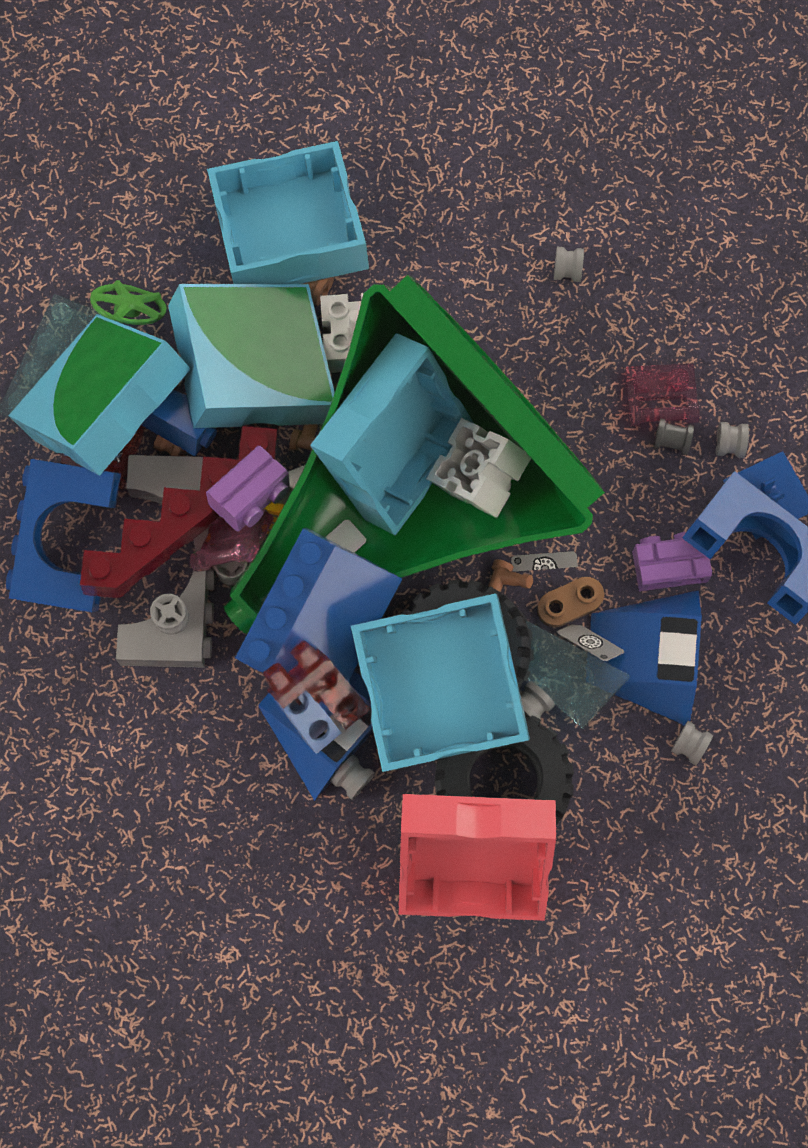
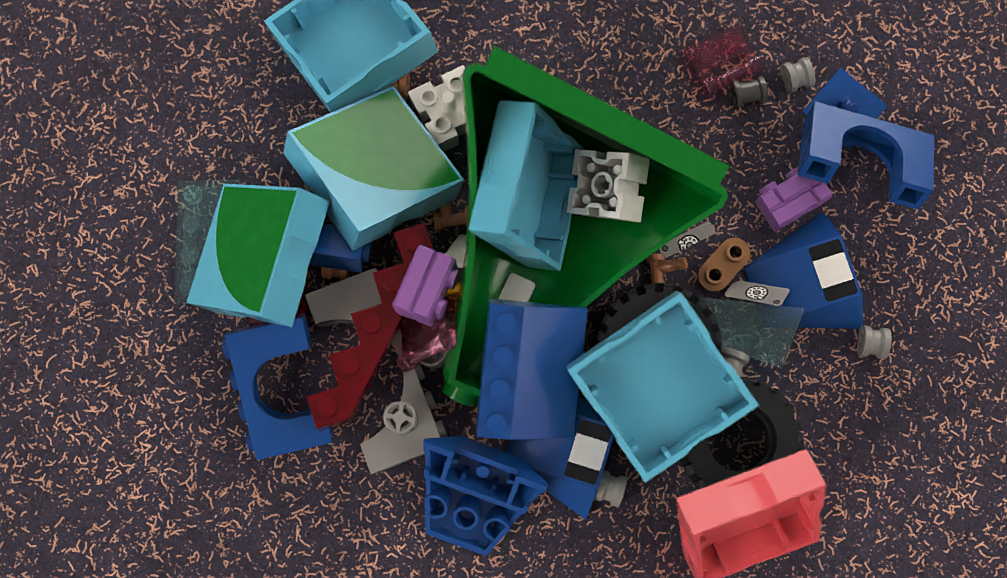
camera: 20 degrees left, 5 degrees up
(128, 304) = (246, 164): bright green wheel -> none
(211, 721) = (475, 491): none -> blue wedge
(306, 686) = (549, 432): clear red hips -> none

